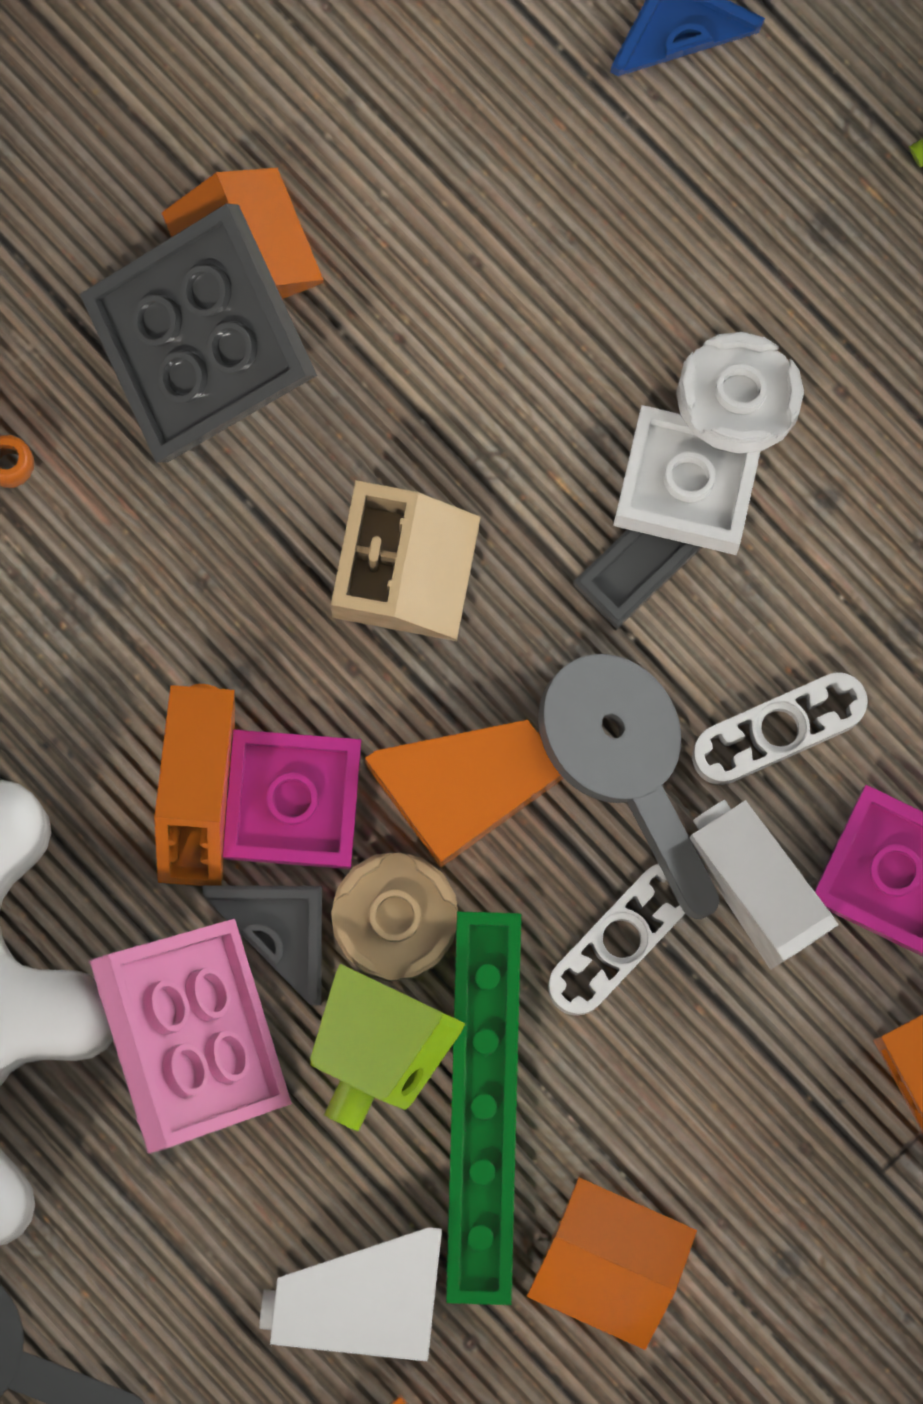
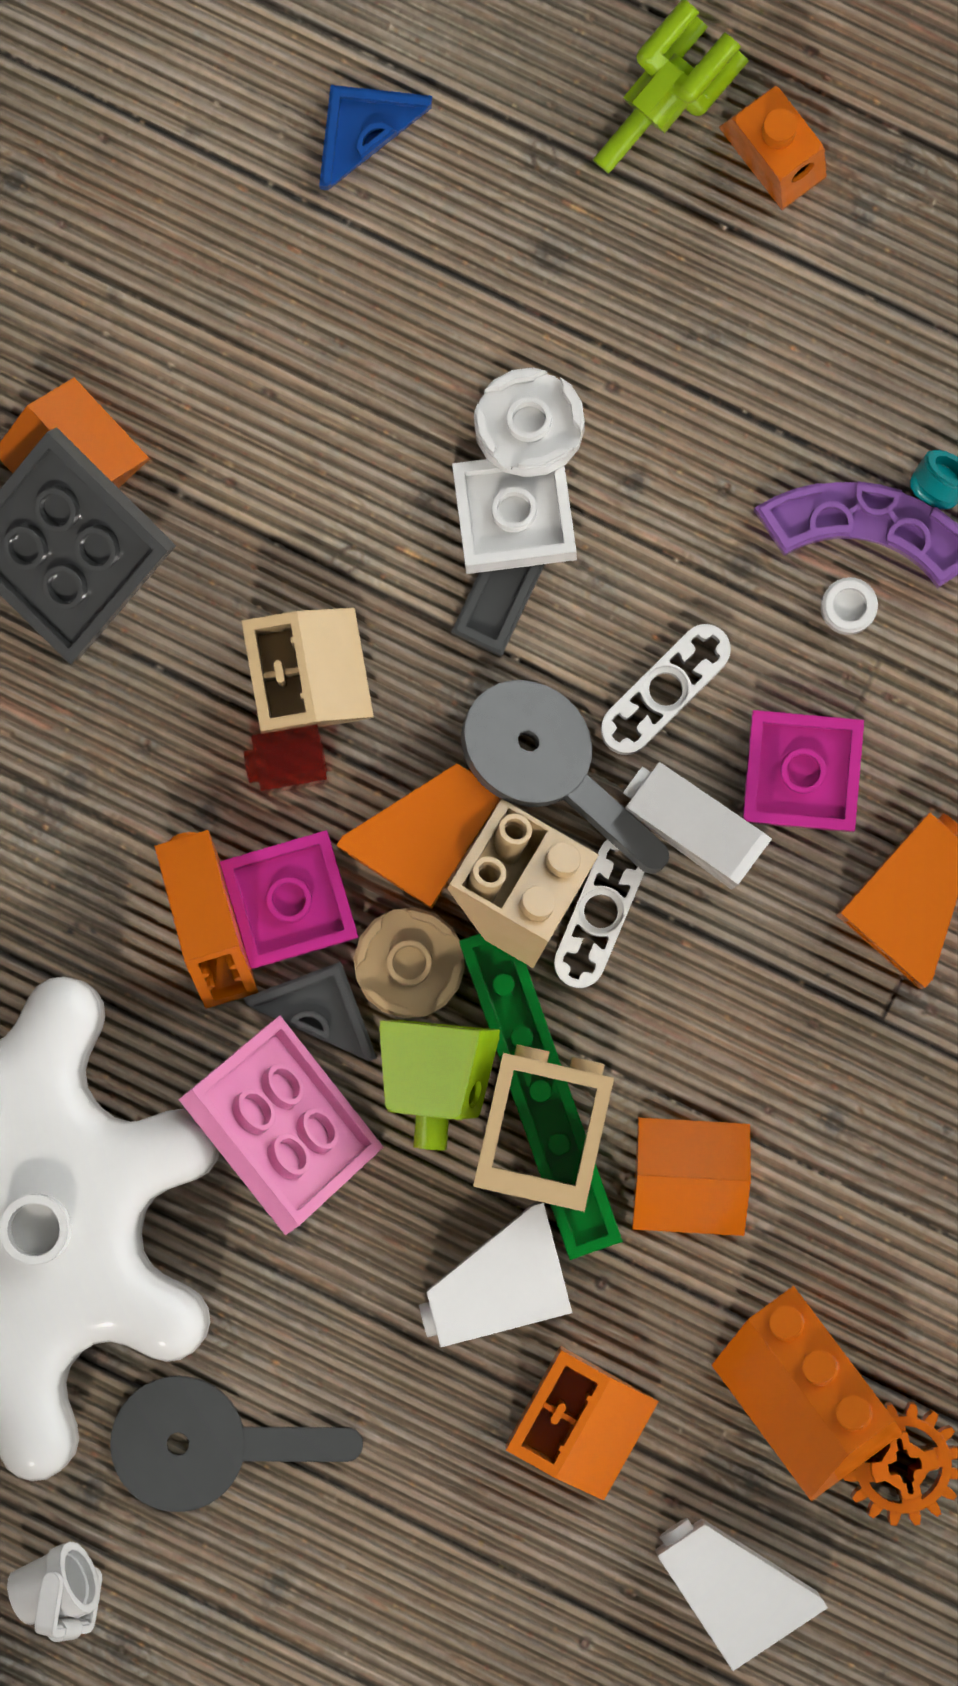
camera: 10 degrees left, 5 degrees up
(347, 649) = (287, 760): none -> clear red brick
(534, 1101) = (534, 1187): none -> tan window
(547, 871) = (520, 881): none -> tan slope

